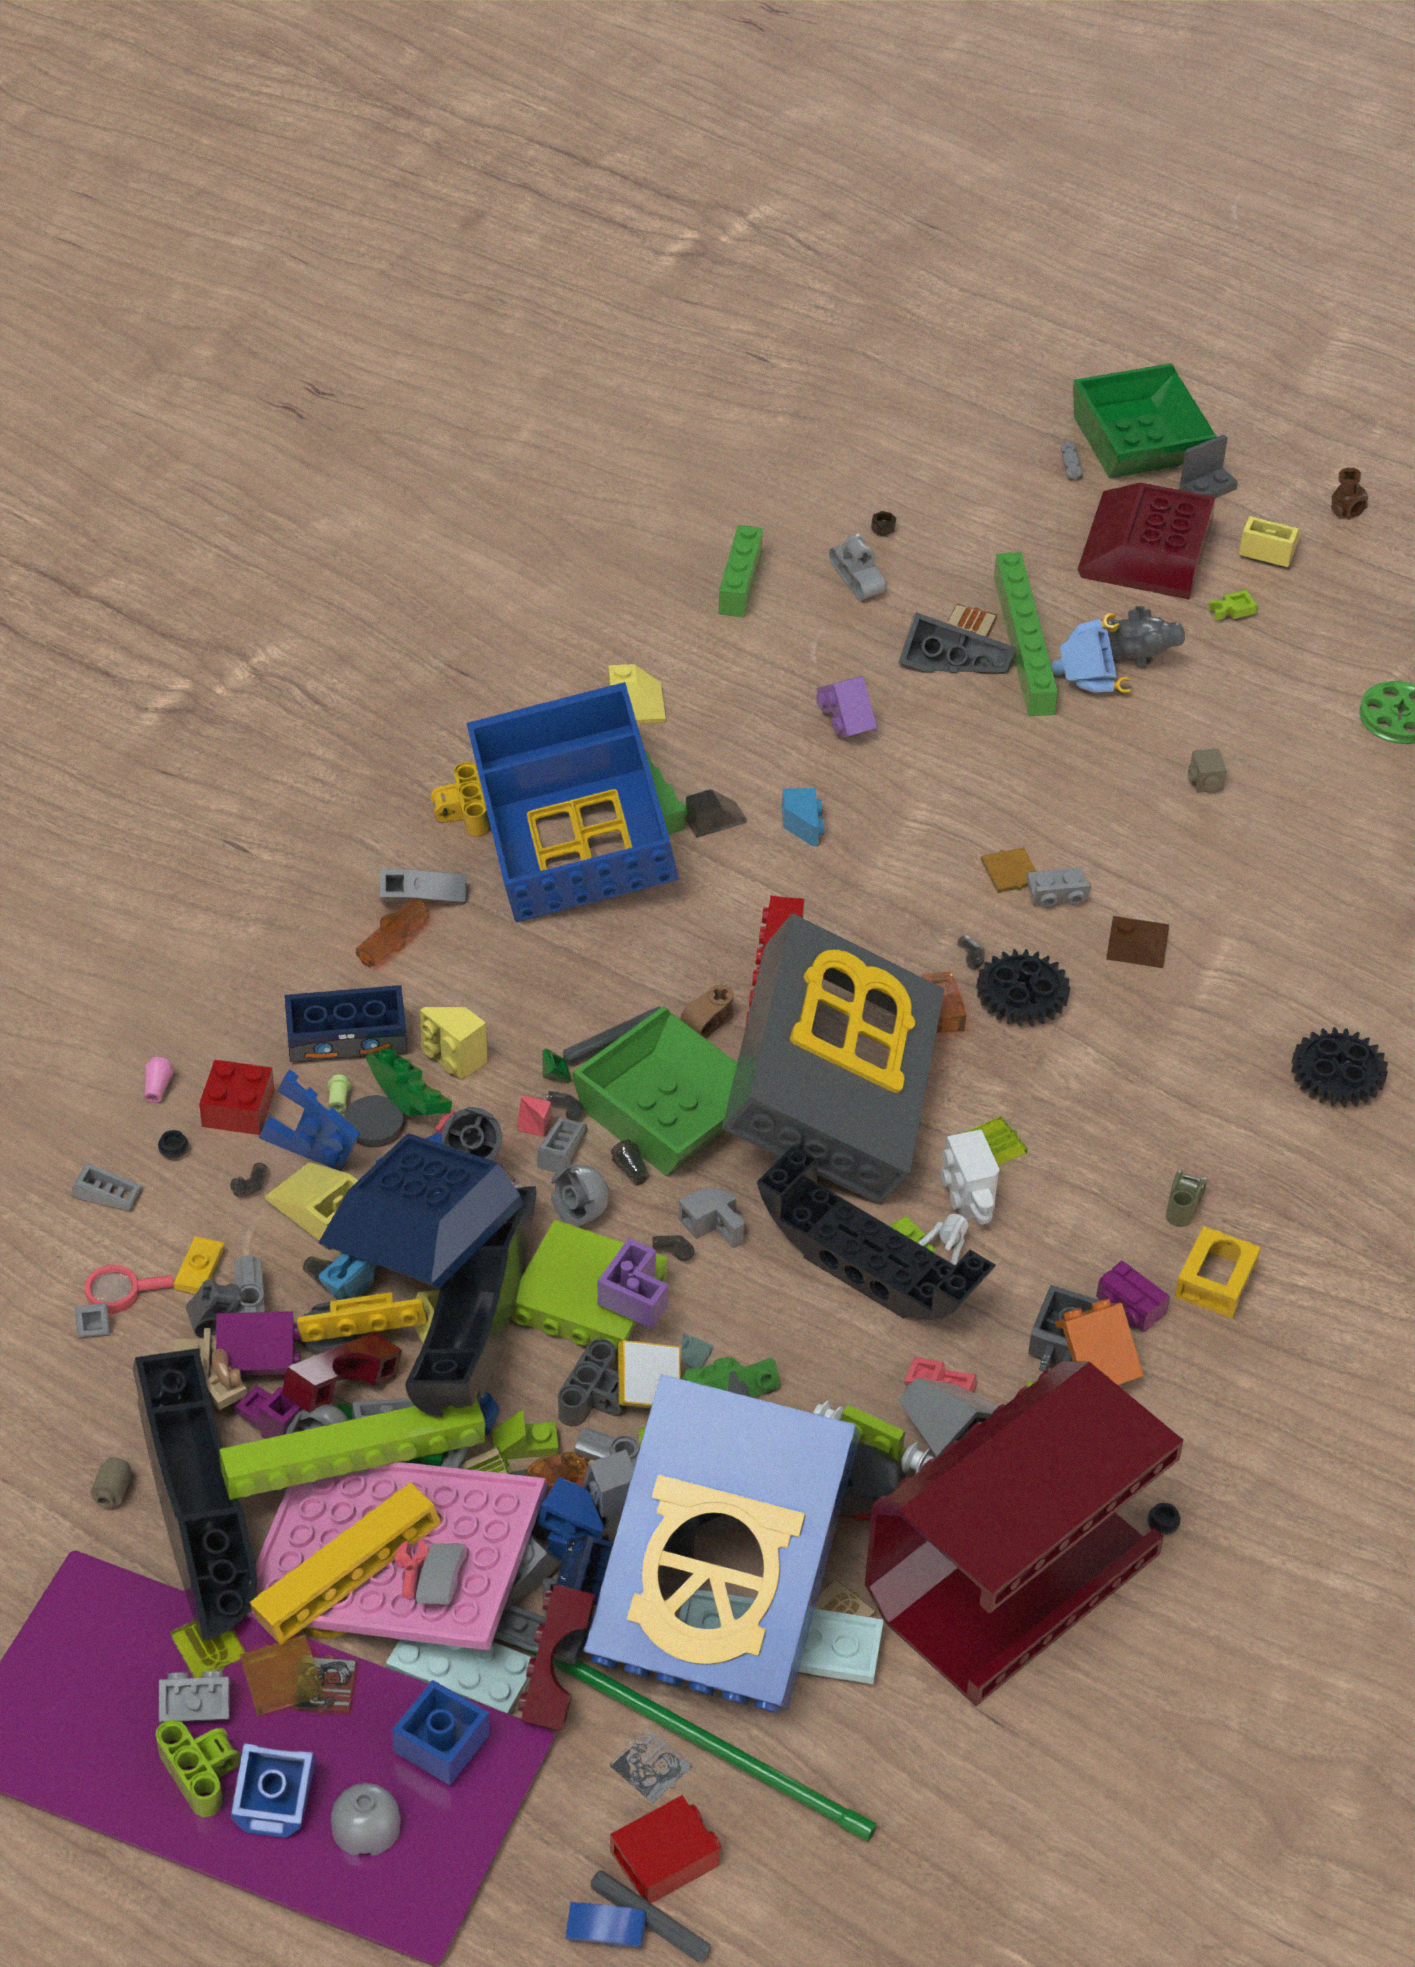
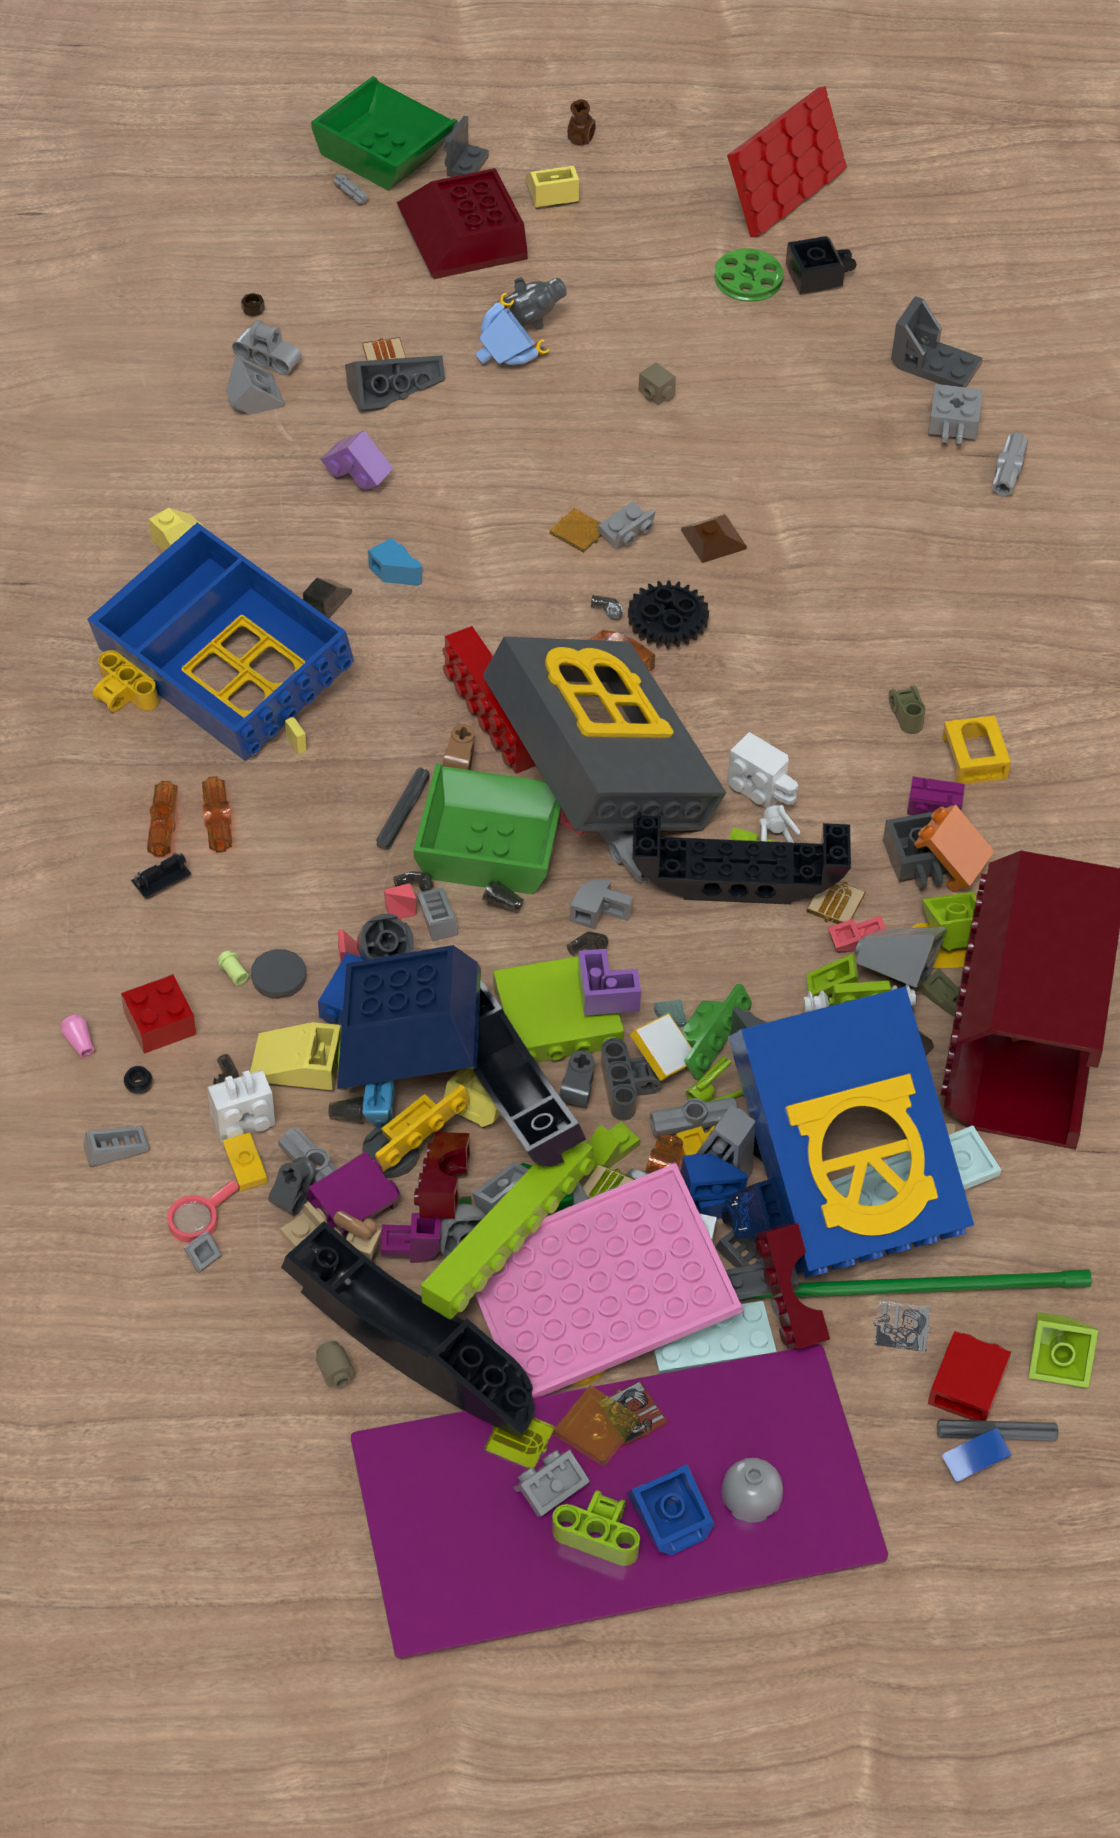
camera: 35 degrees left, 5 degrees up
(229, 1212) = (241, 1105): none -> white hinge
(320, 1133) = (260, 1006): blue wing -> none
(338, 979) = (161, 876): none -> black hinge
(344, 1563) = (581, 1313): yellow brick -> none
(345, 1023) = (194, 909): dark blue brick -> none
(404, 1086) = (279, 931): green slope -> none
(411, 1566) = (633, 1285): coral bar -> none
(427, 886) = (152, 771): light grey slope -> none
(439, 1573) = (664, 1277): light grey slope -> none
(441, 1732) = (755, 1392): blue brick -> none
(443, 954) = (216, 814): none -> clear orange piece
(454, 1039) = (291, 875): light yellow slope -> none
(548, 1361) = (578, 1079): none -> dark grey piece
(554, 1067) = (379, 857): green slope -> none
(574, 920) = (295, 735): none -> light yellow tile
(579, 1194) = (492, 942): light grey cylinder -> none
(740, 571) = (178, 394): bright green brick -> none
(775, 1879) = (1062, 1350): none -> lime slope
(814, 596) = (252, 388): none -> light grey slope
(875, 1401) = (837, 972): none -> lime slope
(948, 1339) = (836, 903): none -> piece
(1002, 1140) = (736, 732): clear neon green piece -> none
(1025, 634) = (437, 339): bright green brick -> none
(1236, 604) = (567, 246): lime plate -> none
(1339, 1067) = (930, 558): black gear -> none

